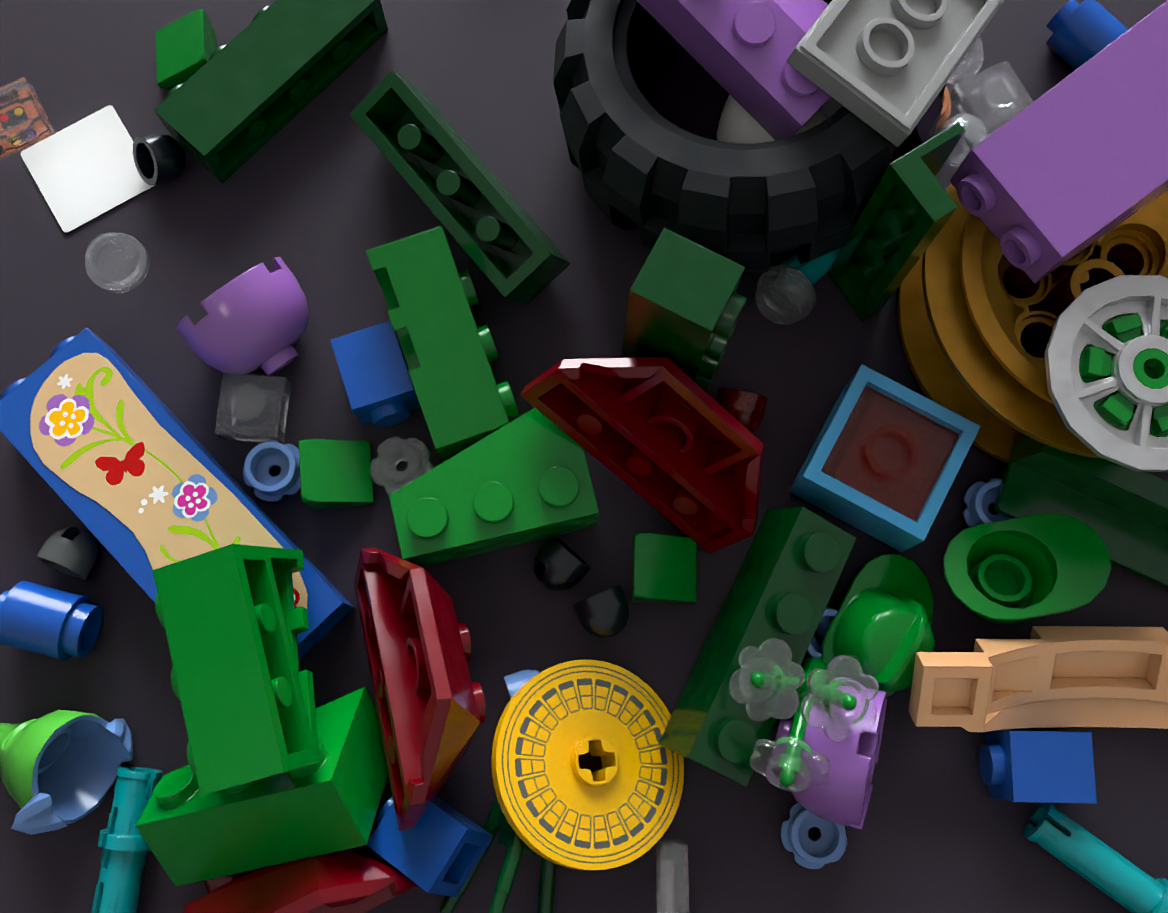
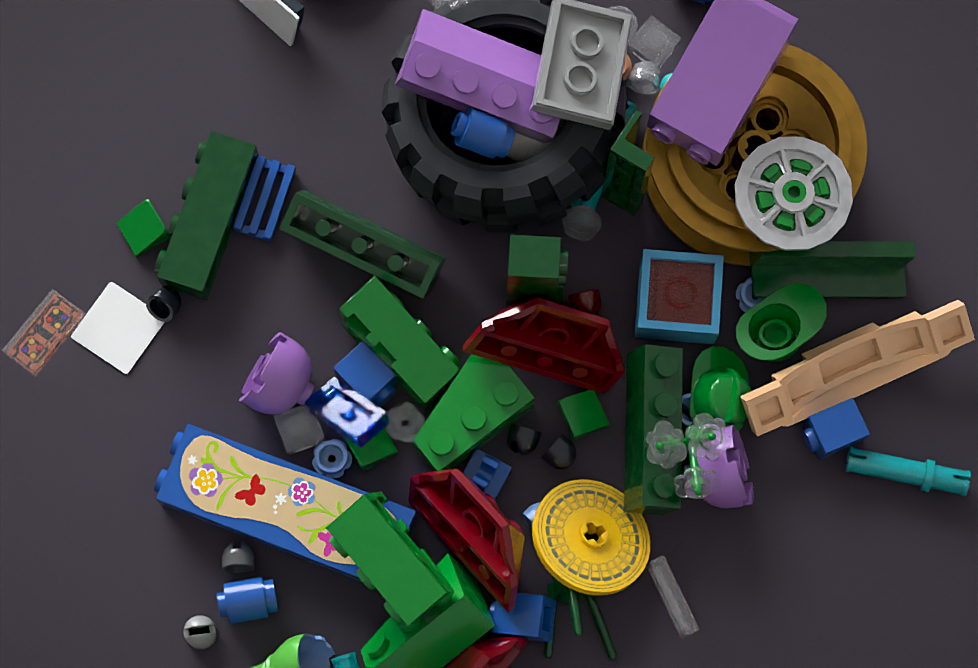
camera: 25 degrees left, 0 degrees up
(116, 262) = (172, 378): clear plate -> none
(317, 413) = (347, 412): none -> clear blue plate
(358, 75) = (274, 168): none -> blue tile
(481, 594) = (487, 472): none -> blue tile
(695, 75) = (482, 133): none -> blue brick
(808, 852) = (734, 532): medium blue plate -> none

